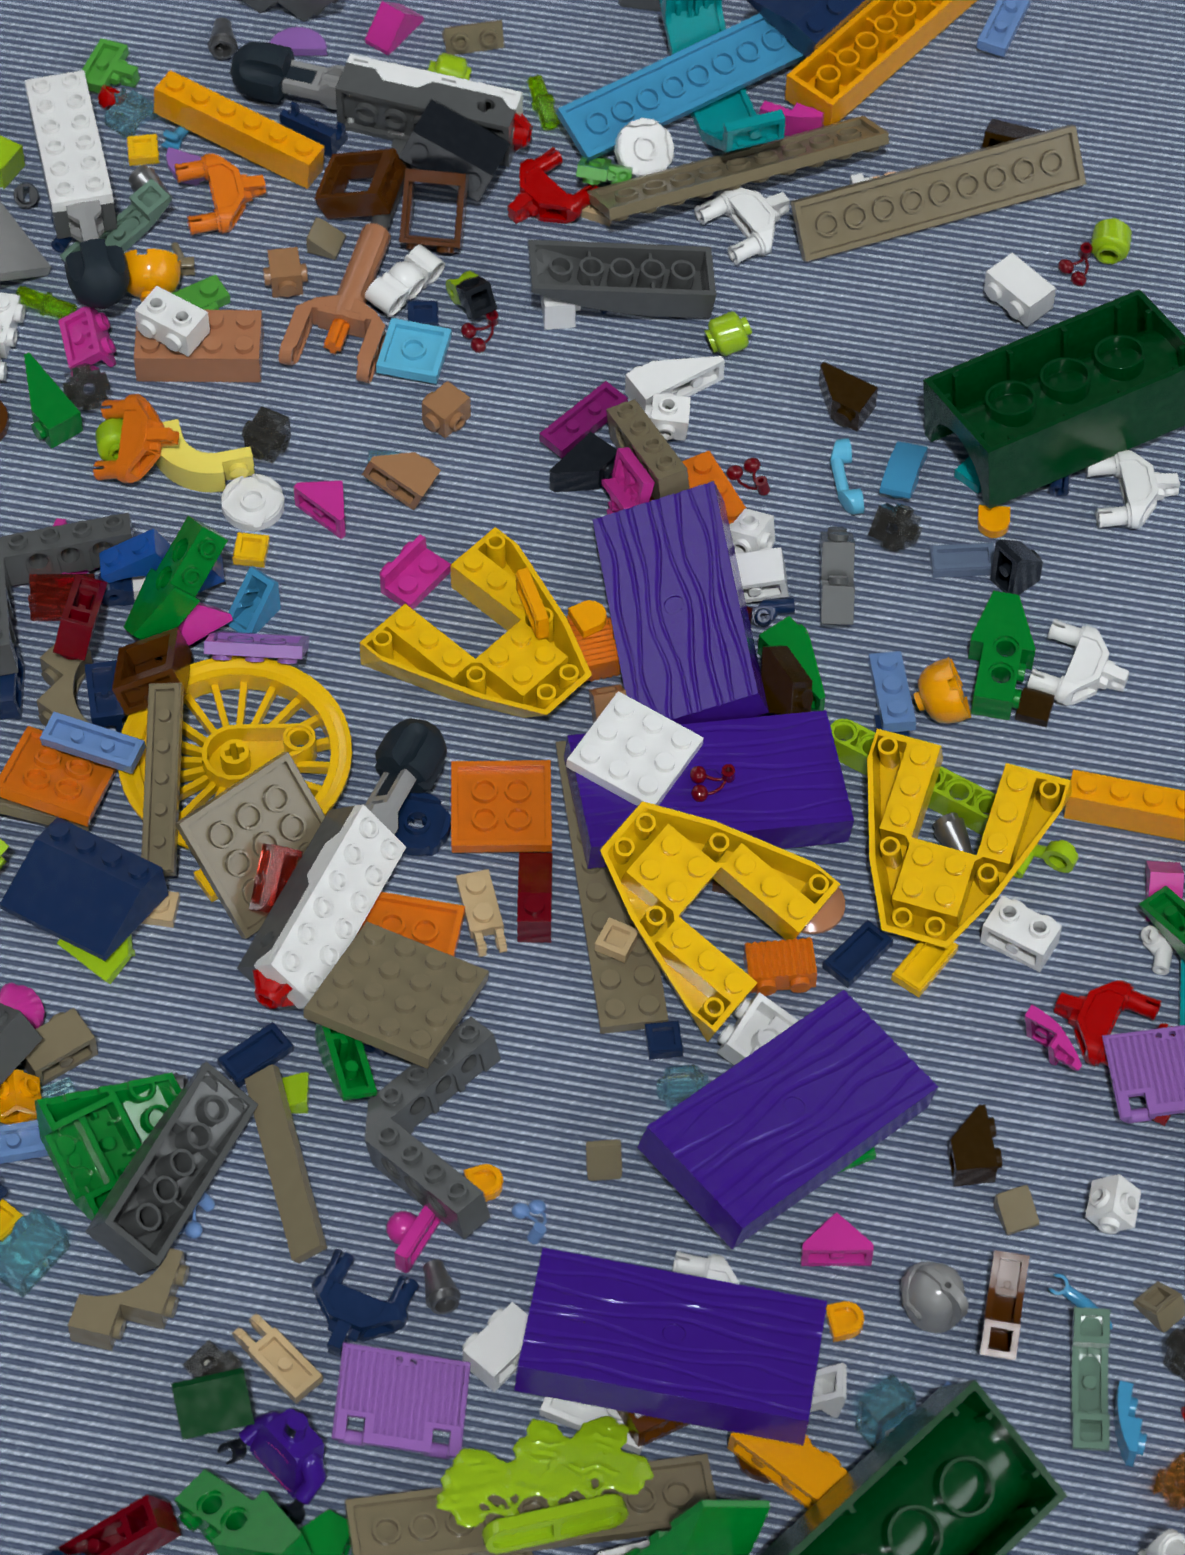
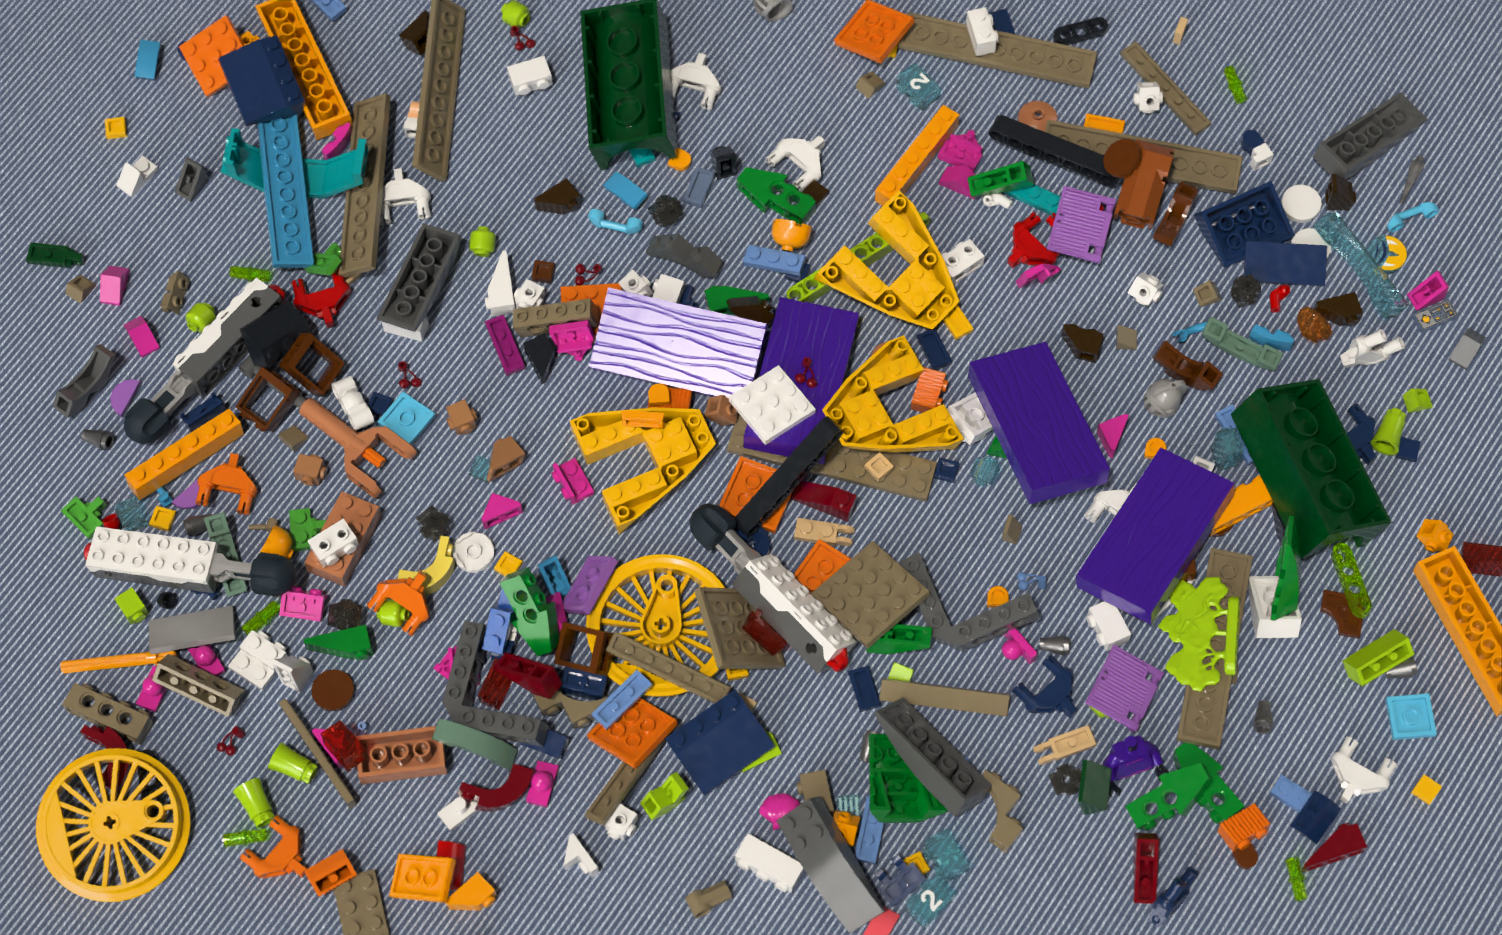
camera: 65 degrees left, 10 degrees up
(472, 293) = (382, 369): black leg -> none
(525, 809) = (788, 476): none -> black beam
(644, 147) = (320, 230): white tile -> none
(724, 424) = (543, 271): none -> reddish brown tile
(952, 832) = (884, 269): flat silver cone -> none

